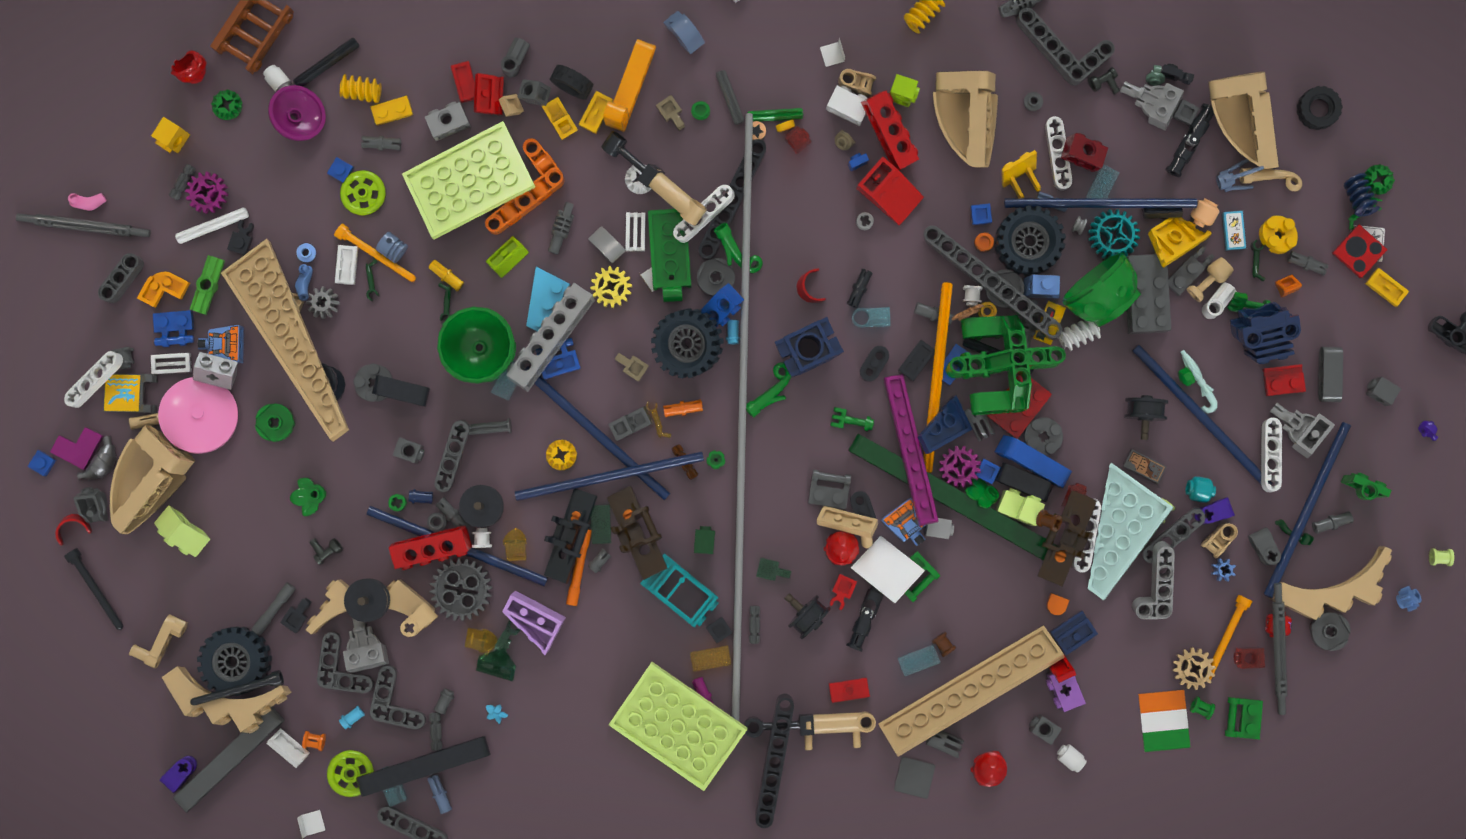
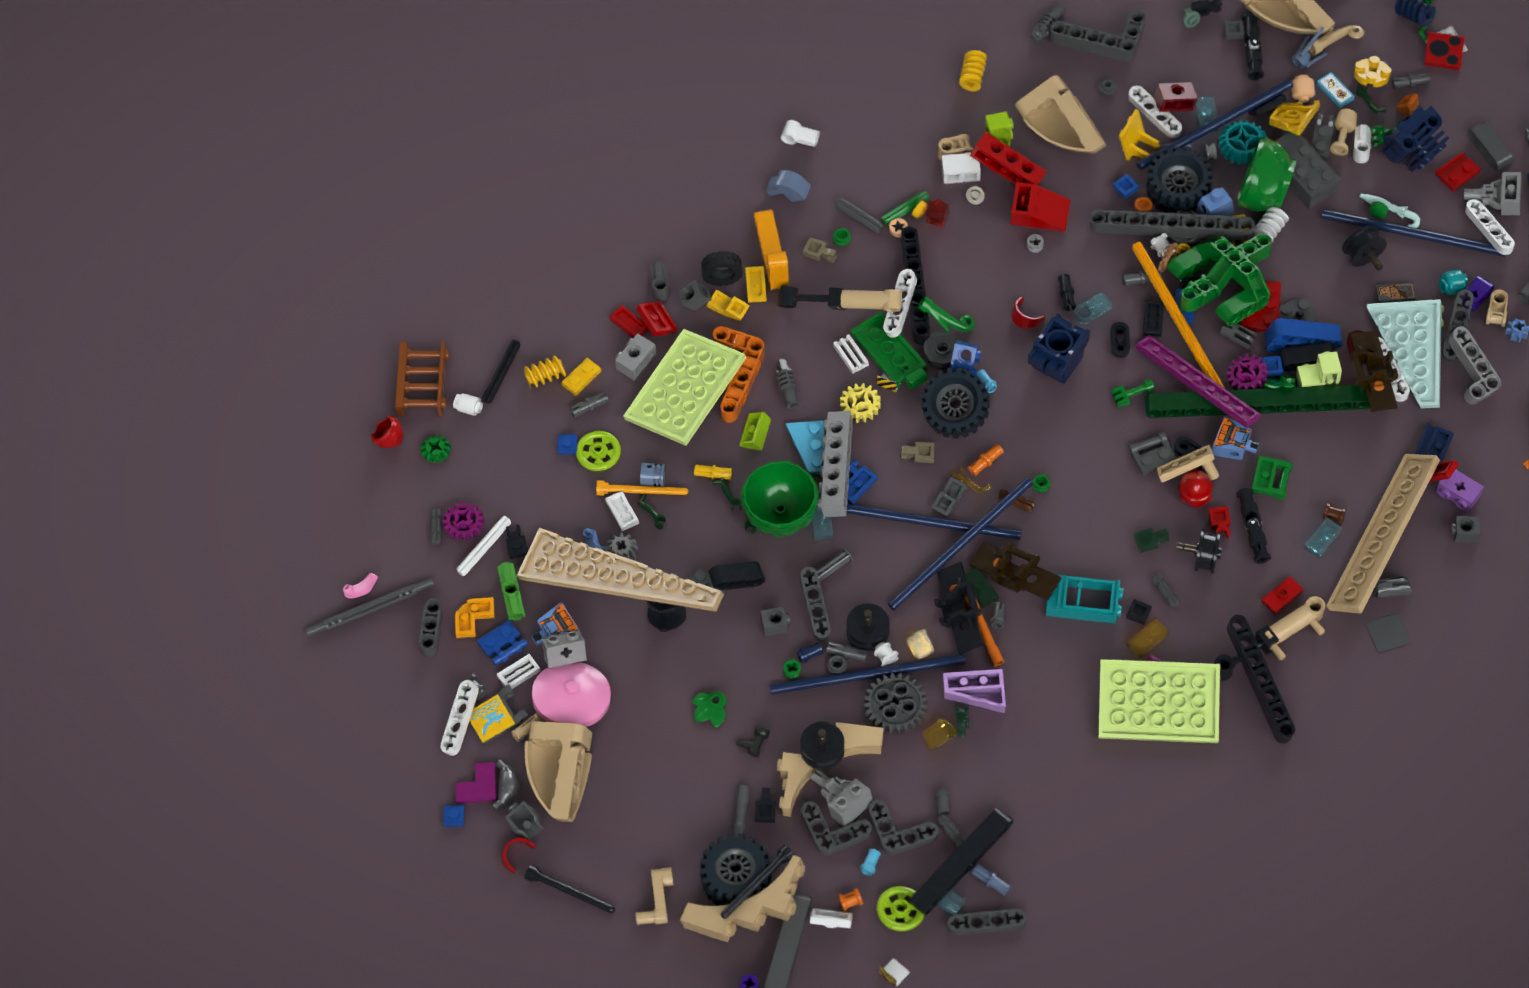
camera: 25 degrees left, 25 degrees down
(170, 136) = (405, 490): yellow brick -> none
(180, 532) = (618, 791): yellowish green brick -> none
(264, 422) = (641, 676): green plate -> none
(303, 105) = (503, 416): magenta dish -> none
(312, 252) = (580, 526): light blue plate -> none
(420, 618) = (877, 738): tan piece -> none
(457, 536) = (865, 657): red brick -> none
(495, 712) = (994, 785): medium azure plant -> none
(497, 665) = (969, 747): clear green slope -> none
(511, 105) = (681, 317): tan plate -> none
(557, 463) = (910, 560): yellow gear -> none
(607, 244) = (837, 373): light grey panel -> none
(635, 187) = (829, 319): white gear -> none
(704, 540) = (1077, 544): dark green brick -> none
(742, 416) = (1043, 440): light grey piece -> none
(770, 396) = (1051, 413): green plant -> none
(833, 53) = (922, 139): white sticker -> none
(858, 161) = (998, 202): blue plate -> none
(887, 569) = (1245, 480): white sticker -> none
(942, 529) = (1265, 429): light grey brick -> none
(945, 426) = (1212, 349): dark blue wing -> none
(989, 769) = (1444, 585): red hair -> none
(1049, 520) = (1348, 359): reddish brown bush -> none
(1057, 605) = (1404, 433): orange tile -> none
(1071, 758) = (1505, 538): white brick -> none
(1095, 82) = (1147, 47): pearl dark grey piece -> none
(1156, 101) = (1204, 33): light grey brick -> none
(1387, 287) = (1485, 63): yellow plate -> none

